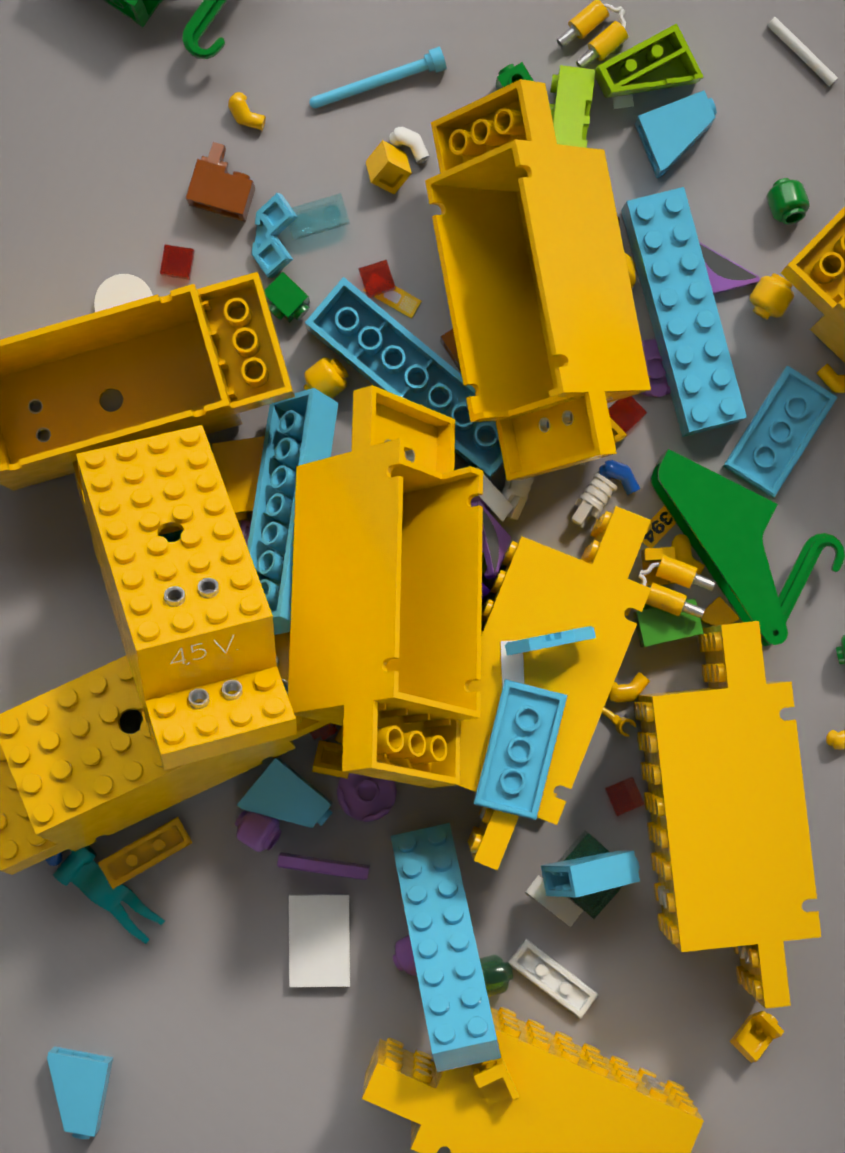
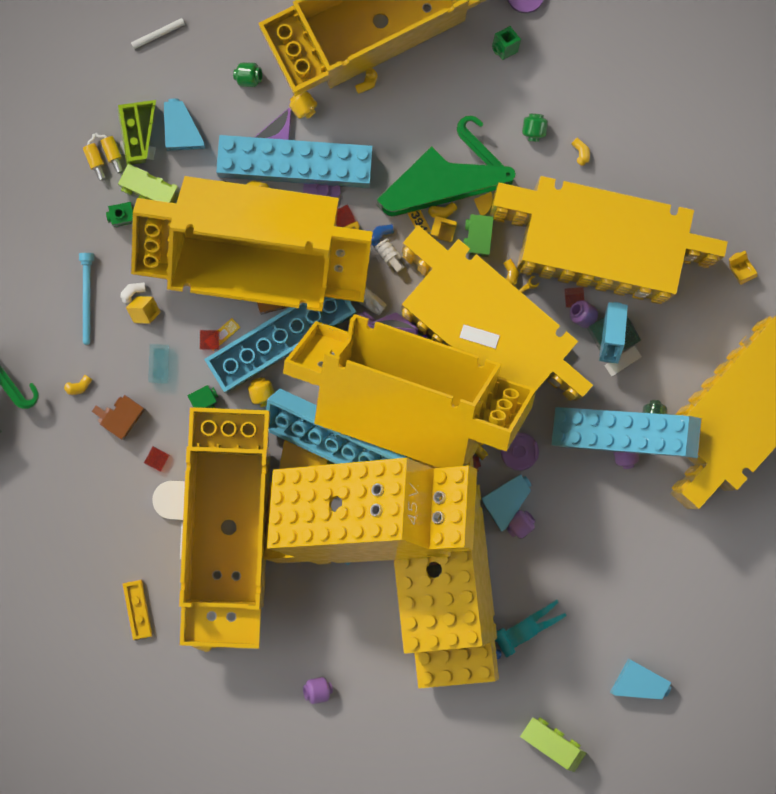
camera: 75 degrees left, 0 degrees up
(145, 852) = (512, 597): yellow tile -> none
(270, 222) = (167, 400): medium azure tile -> none
(319, 940) = (599, 510): white tile -> none
(323, 866) = (556, 491): medium lavender tile -> none
(329, 759) = (494, 463): yellow bracket -> none
(495, 499) = (371, 313): white sticker -> none
(495, 1081) = (714, 427): yellow panel -> none
(520, 749) = (527, 347): medium azure tile -> none
(550, 640) = (470, 303): medium azure tile -> none
(553, 978) = (668, 377): white tile -> none
(604, 818) = (583, 313): none -> medium lavender head
(680, 574) = (453, 218): yellow piece -> none
(780, 431) = (386, 128): medium azure tile -> none

